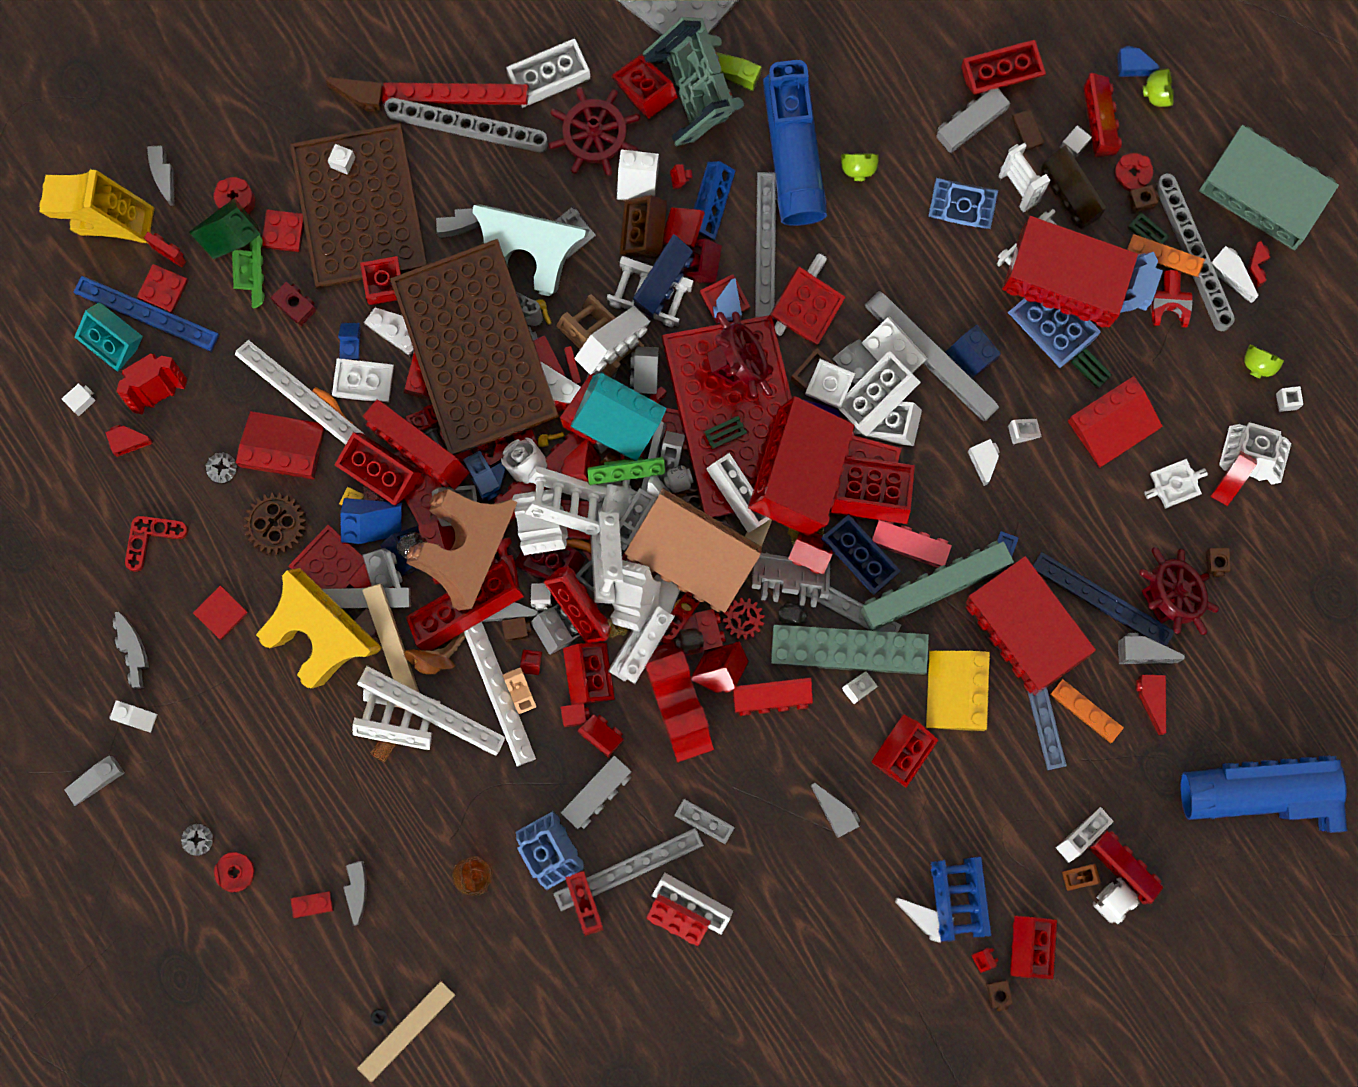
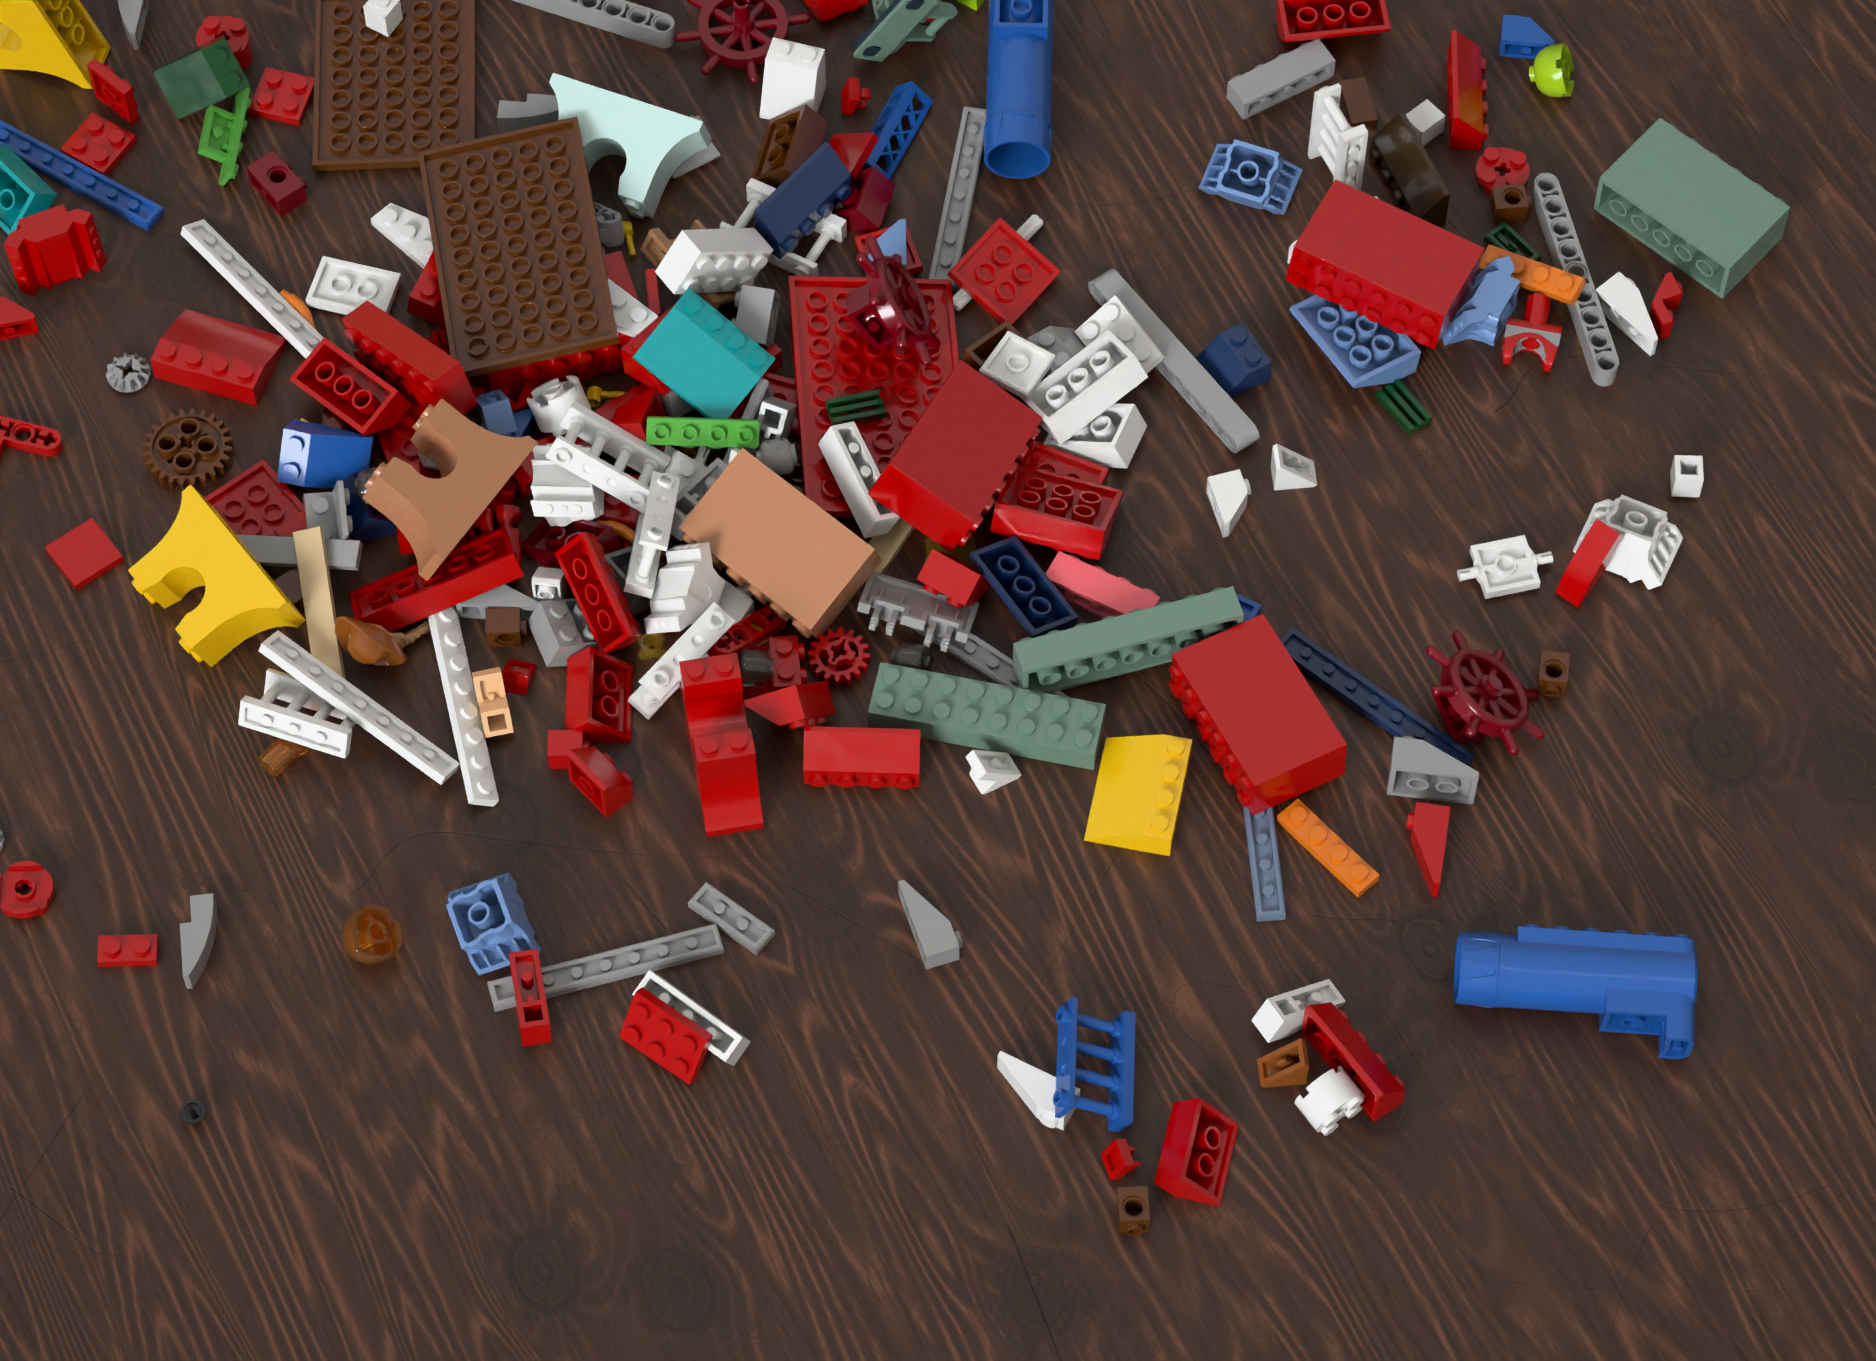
camera: 10 degrees right, 20 degrees down
(349, 341) = (346, 239): blue slope -> none
(377, 280) = (401, 168): red slope -> none
(406, 1031) = (228, 1140): tan tile -> none
(596, 792) = (578, 855): light grey brick -> none
(859, 165) = (1109, 111): lime cylinder -> none
(904, 750) = (1046, 860): red slope -> none
(1115, 422) = (1427, 475): red slope -> none
(1261, 362) = (1652, 424): lime cylinder -> none

